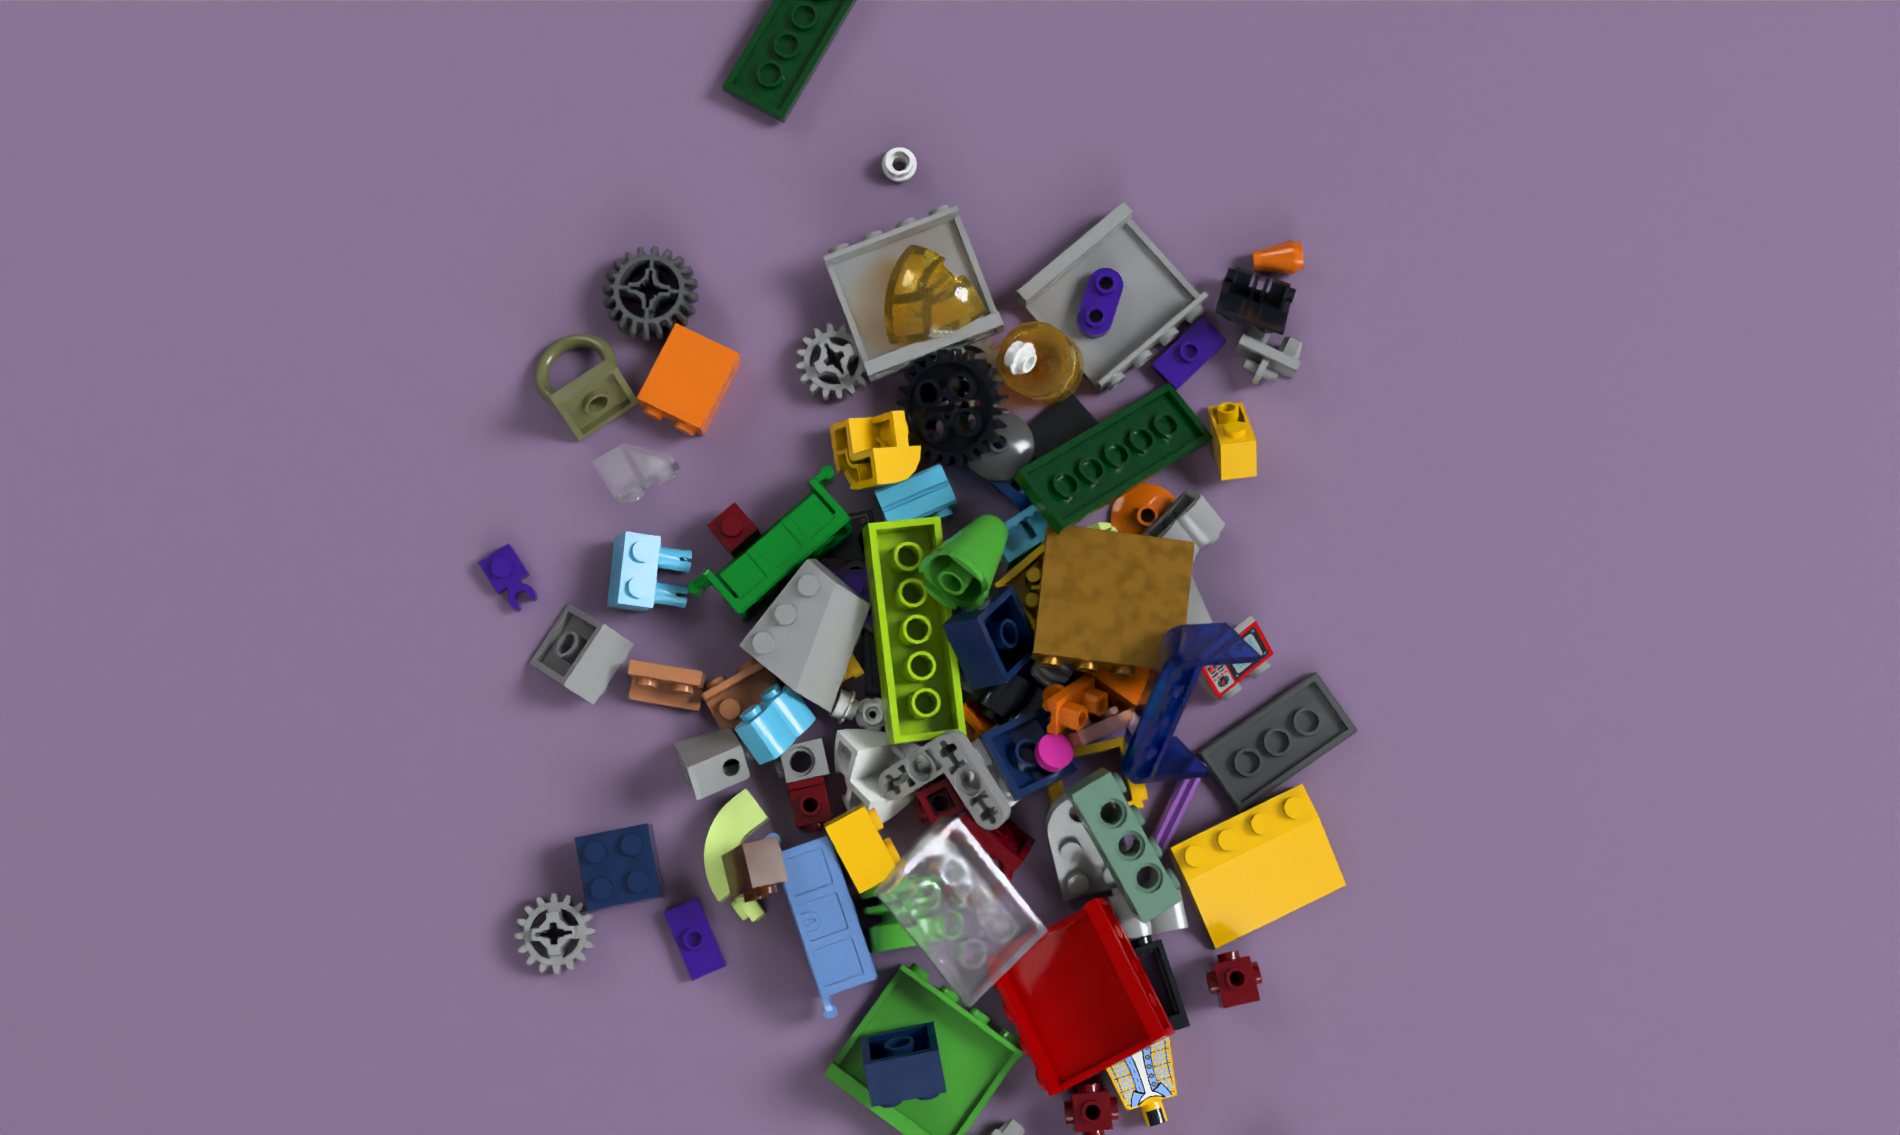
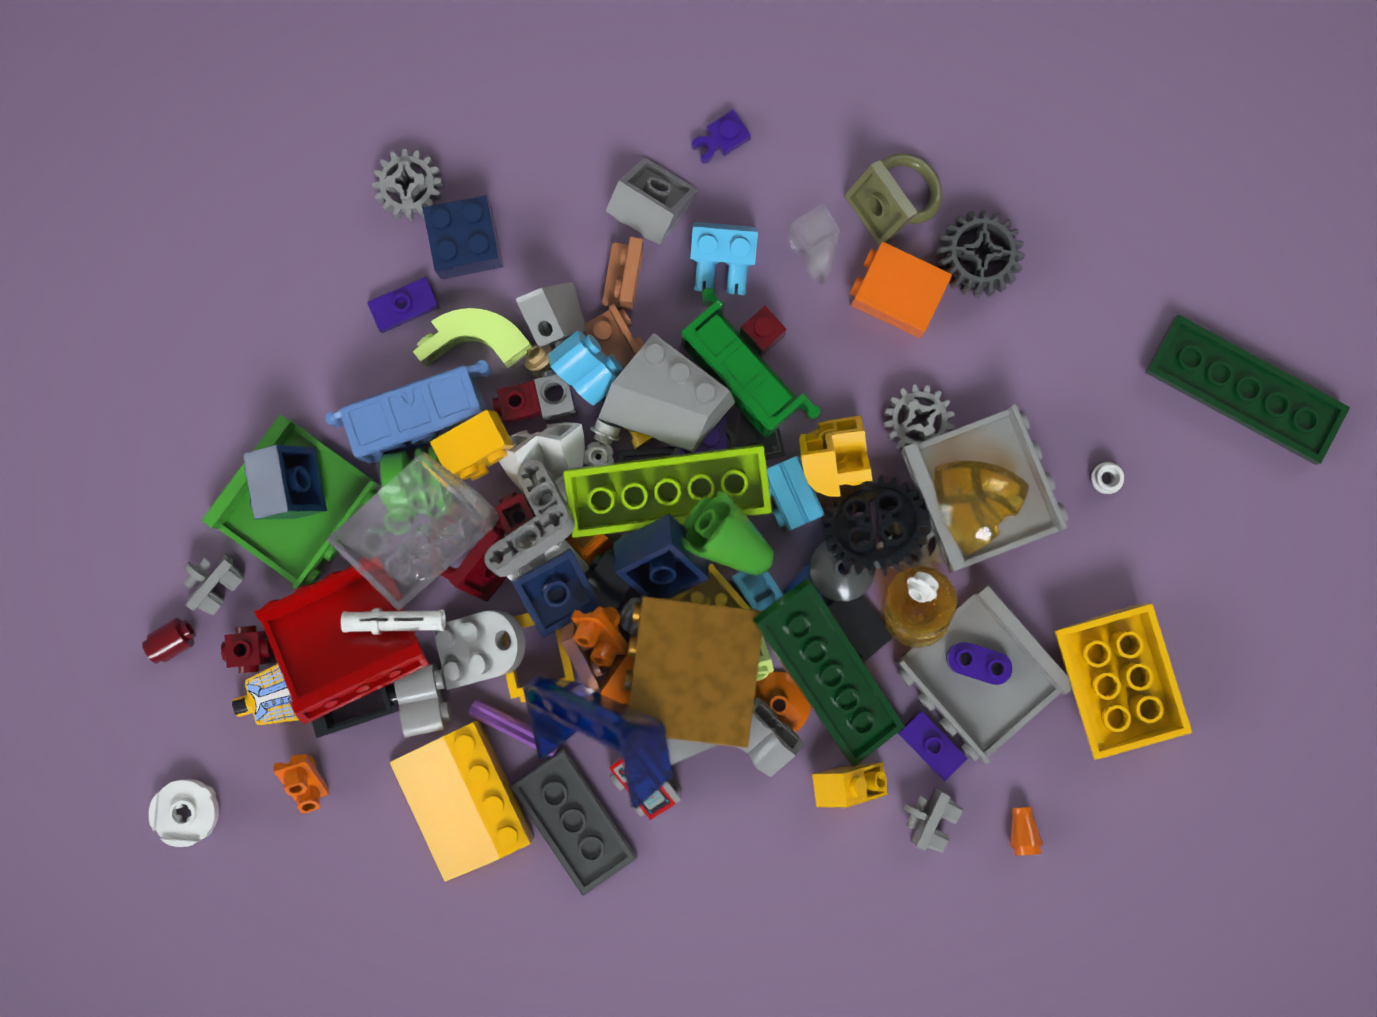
camera: 90 degrees right, 5 degrees up
(754, 869) = (451, 349): brick -> none
(762, 781) = (538, 360): none -> tan plate
(1054, 752) = (556, 616): dark pink tile -> none
(1059, 971) = (392, 621): none -> white pin
(1117, 153) = (1123, 680): none -> yellow slope
(1143, 899) = (426, 702): sand green brick -> none
(1239, 1043) = (302, 781): none -> orange hips
(1245, 988) = (347, 780): dark red brick -> none
(1255, 306) = (978, 807): black hinge -> none

